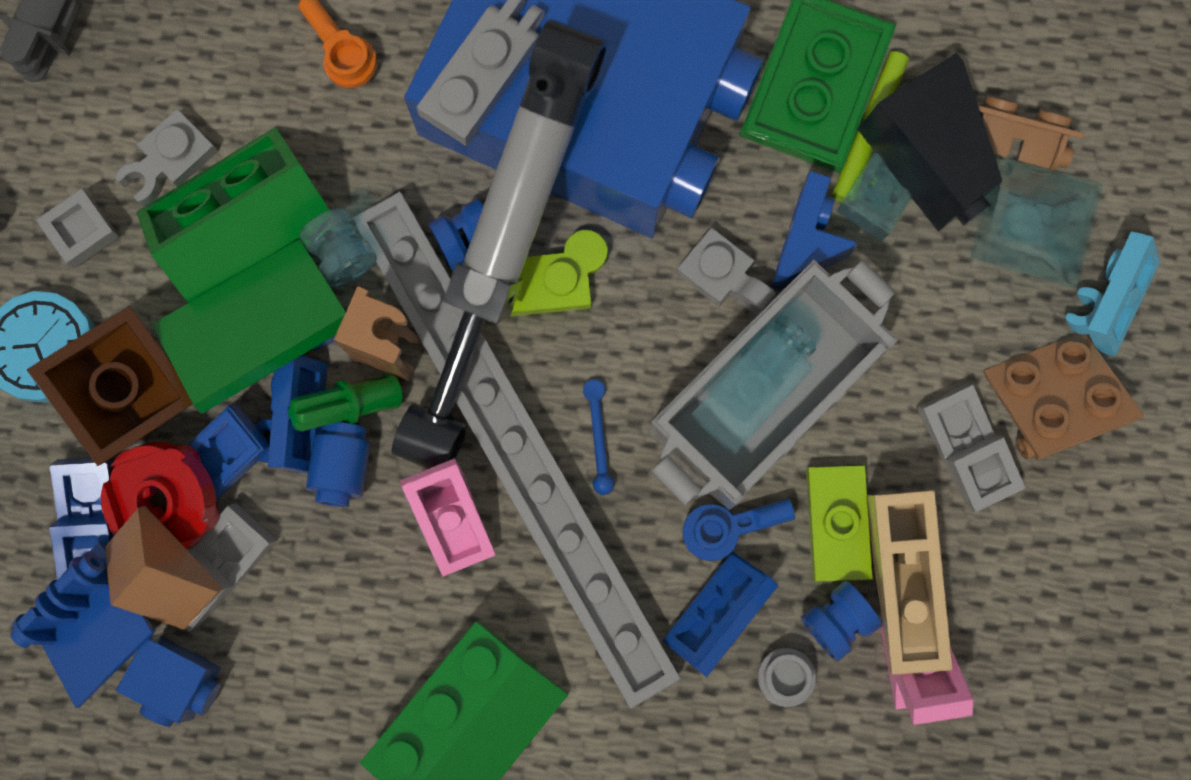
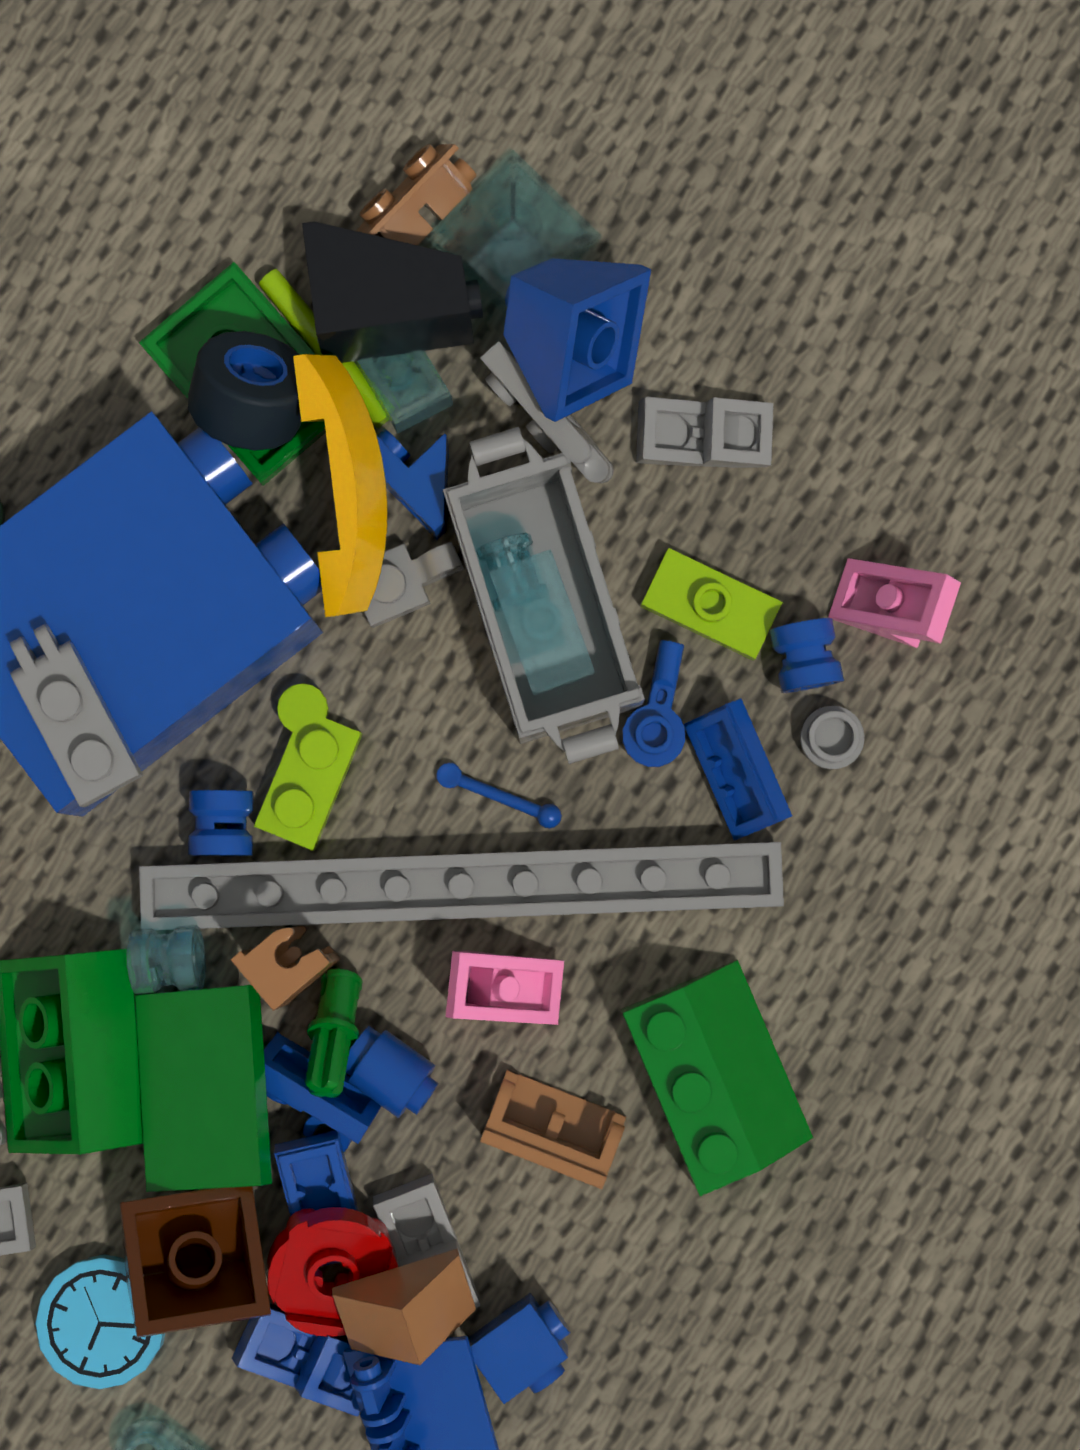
camera: 60 degrees left, 5 degrees up
(357, 616) = (554, 1129): none -> medium nougat hinge
(488, 281) = (242, 770): piece -> none
(781, 194) = (357, 478): none -> yellow slope
(807, 77) = (245, 391): none -> black wheel
(910, 581) = (802, 568): tan slope -> none
(912, 322) = (563, 434): none -> light grey hinge
(997, 299) = (575, 329): none -> blue slope
(1061, 396) = (702, 316): medium nougat hinge -> none
(1129, 278) = (622, 182): medium azure plate -> none

